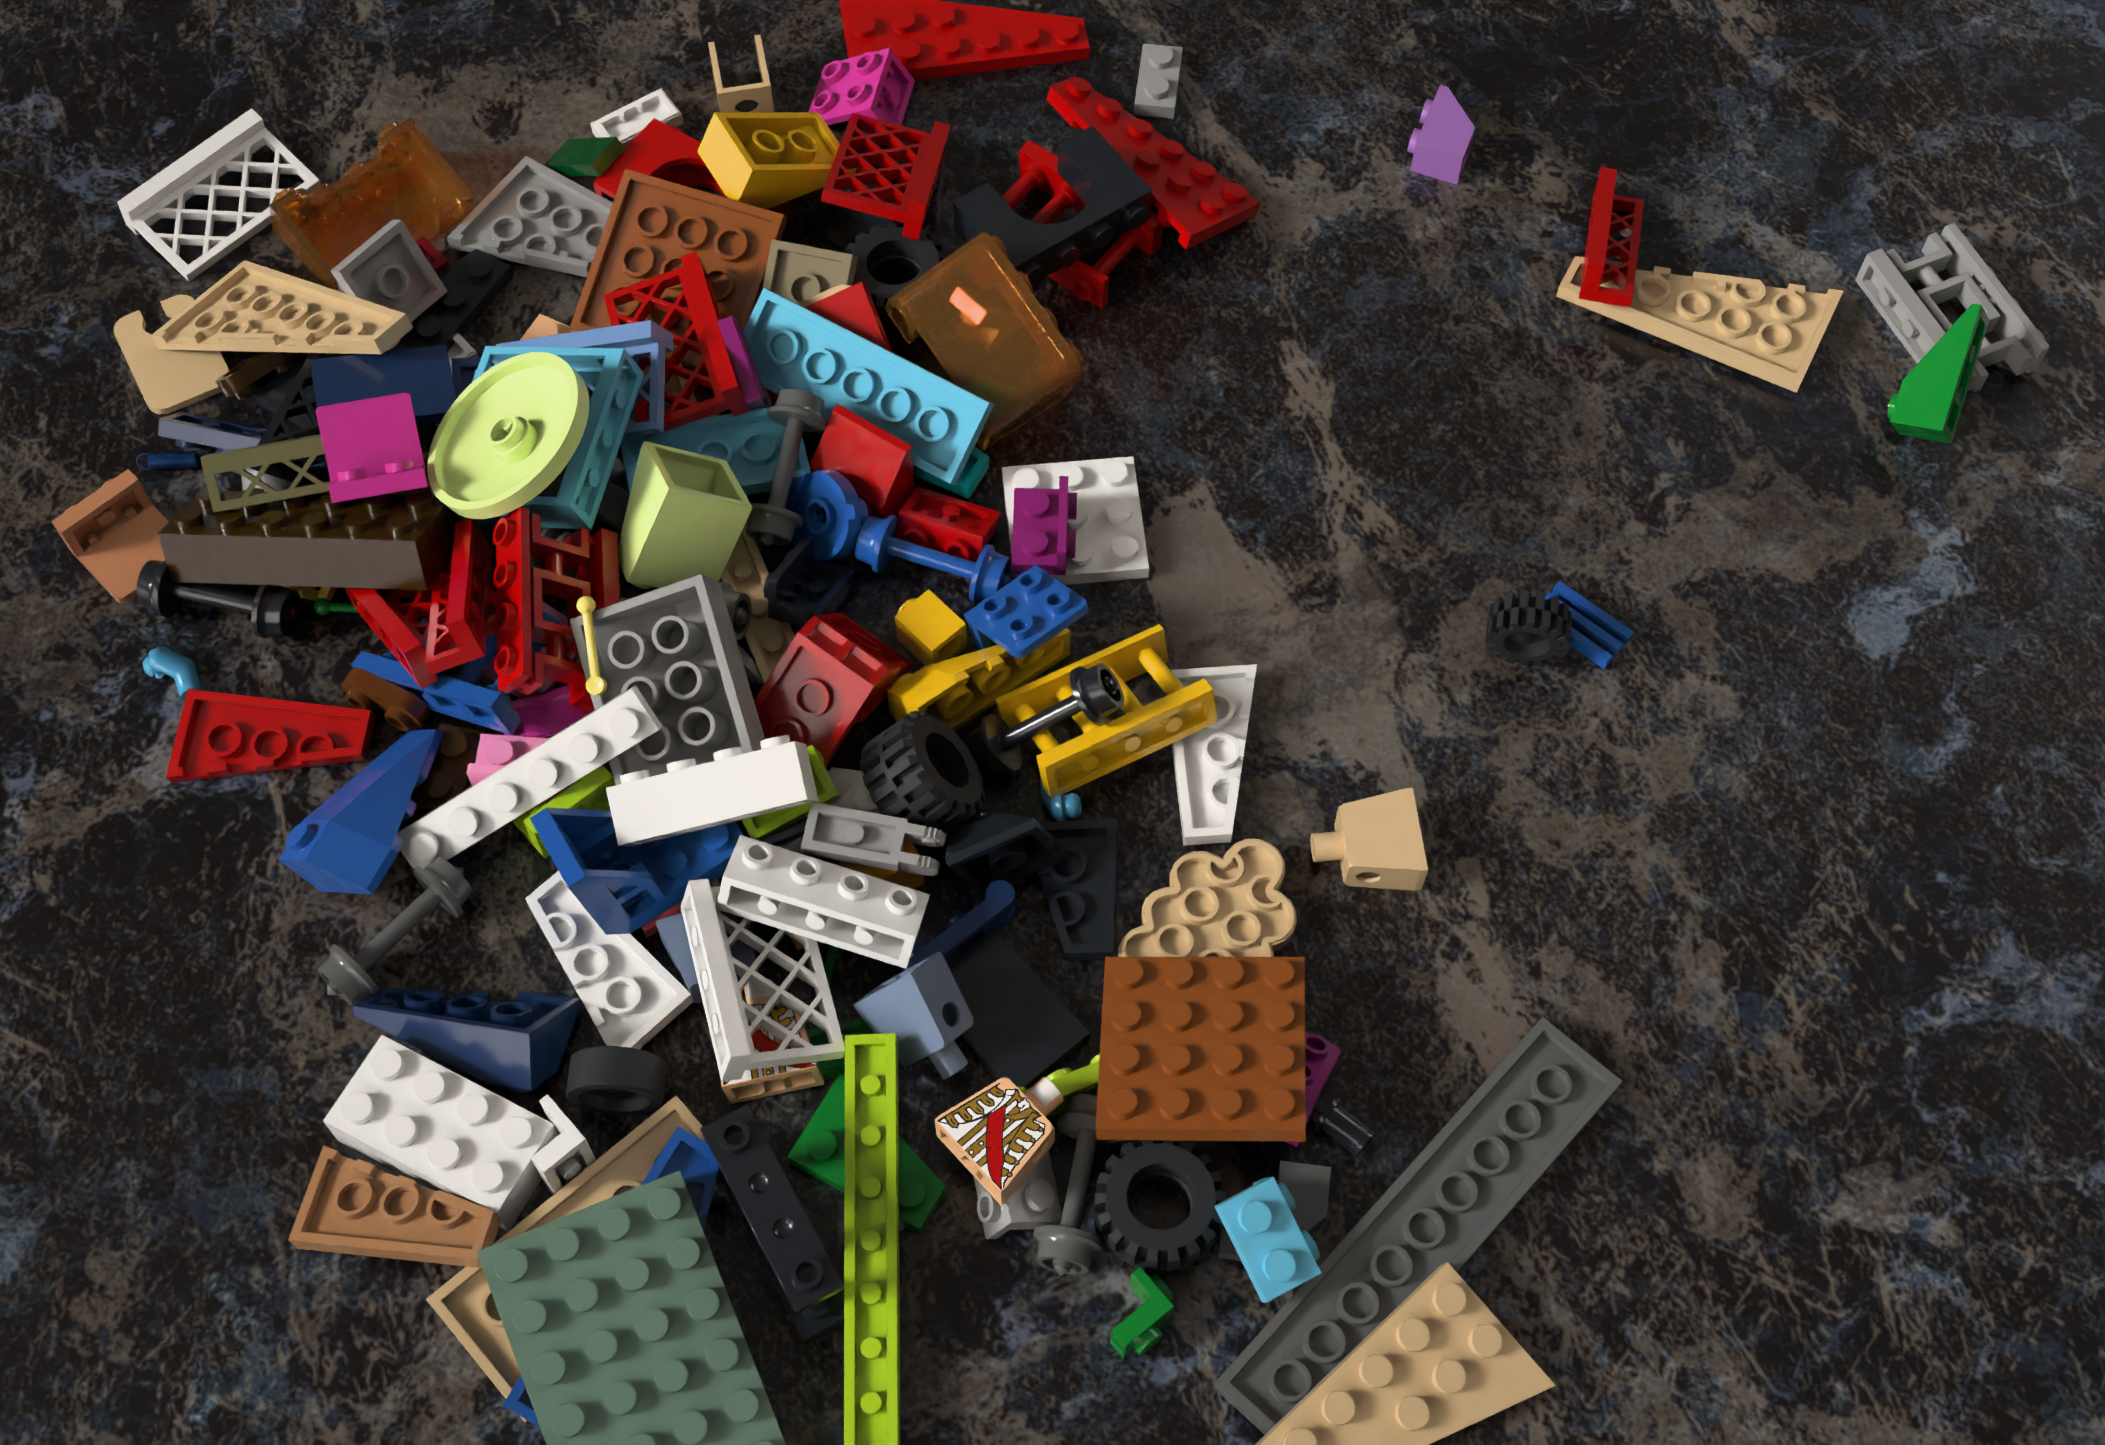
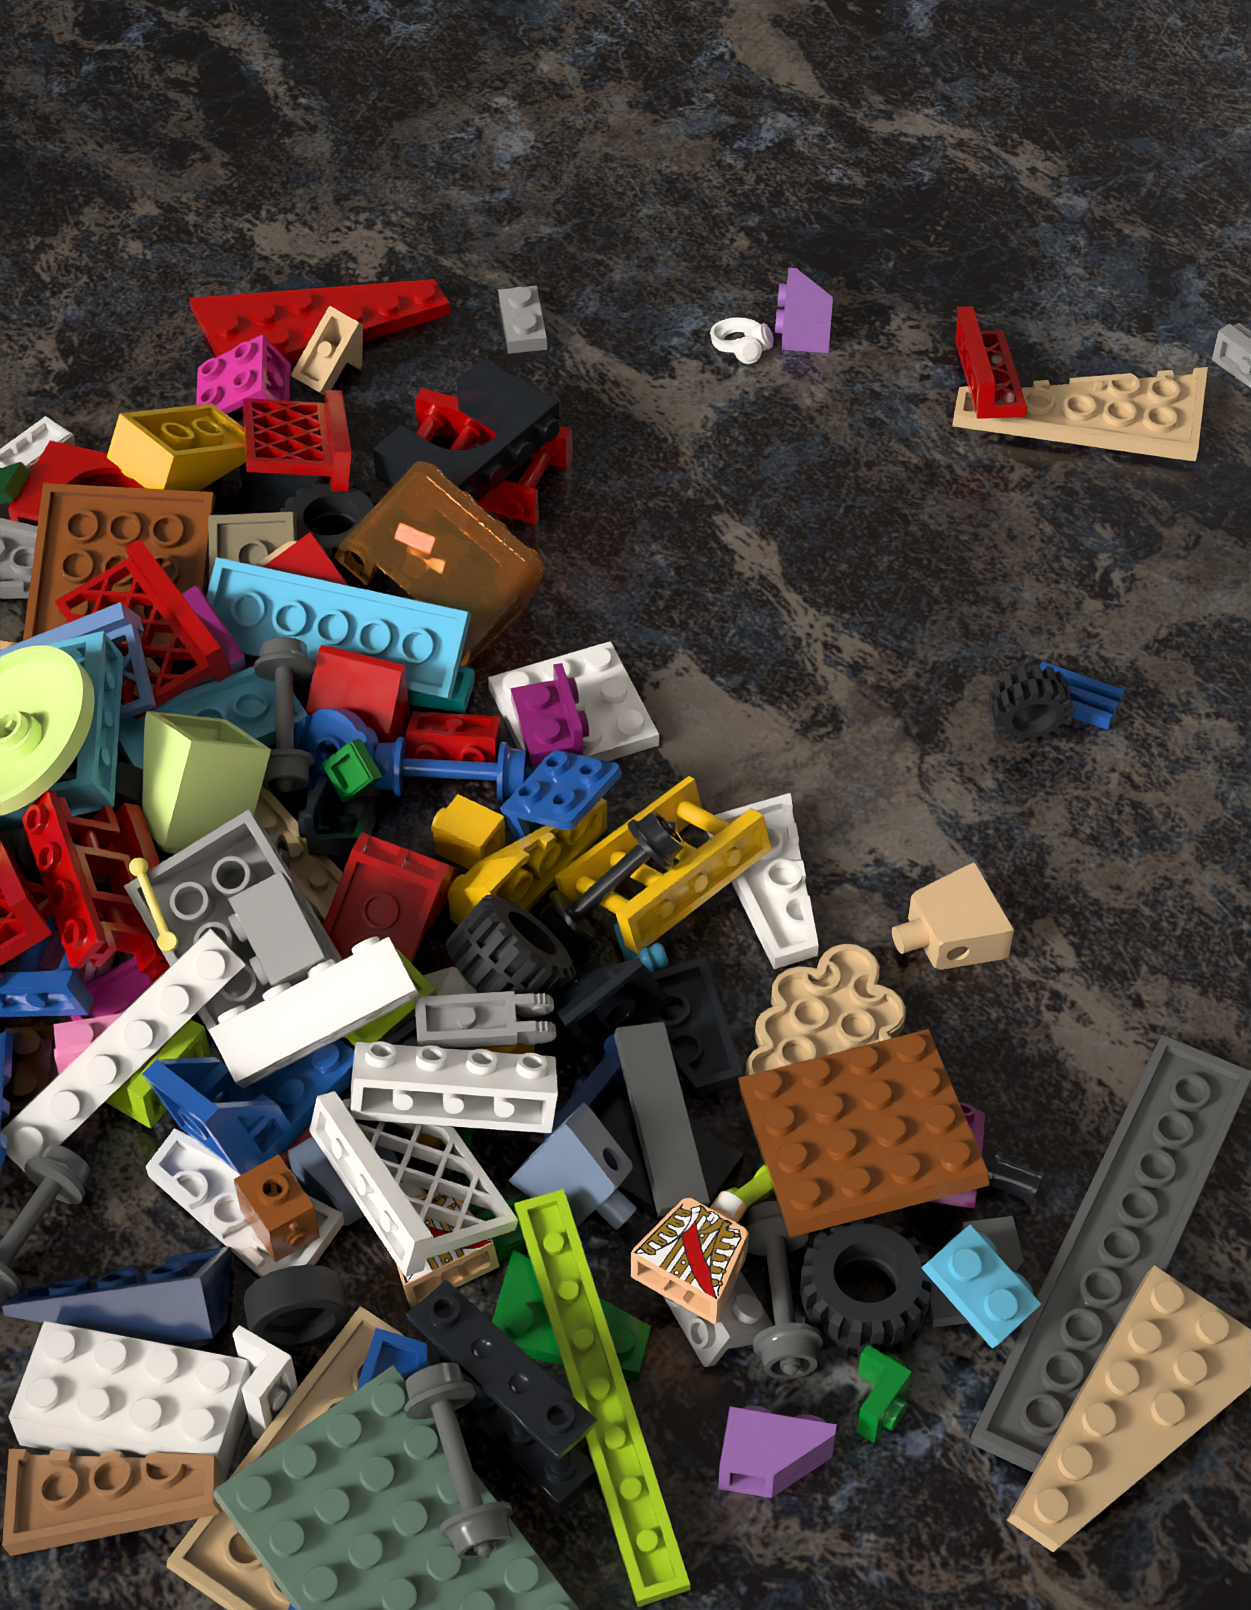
camera: 15 degrees left, 10 degrees down
(626, 977) = (277, 1208): none -> dark orange head
(696, 705) = (277, 930): none -> light grey brick
(706, 1214) = (480, 1526): none -> dark grey piece
(731, 96) = (108, 409): tan piece -> none
(833, 540) = (351, 770): none -> green tile
(955, 74) = (330, 348): none -> tan slope
(1017, 979) = (660, 1116): none -> dark grey tile
(1017, 1346) = (771, 1451): none -> medium lavender slope
(1183, 188) = (583, 401): red wing -> none
(1372, 163) = (748, 348): none -> white piece

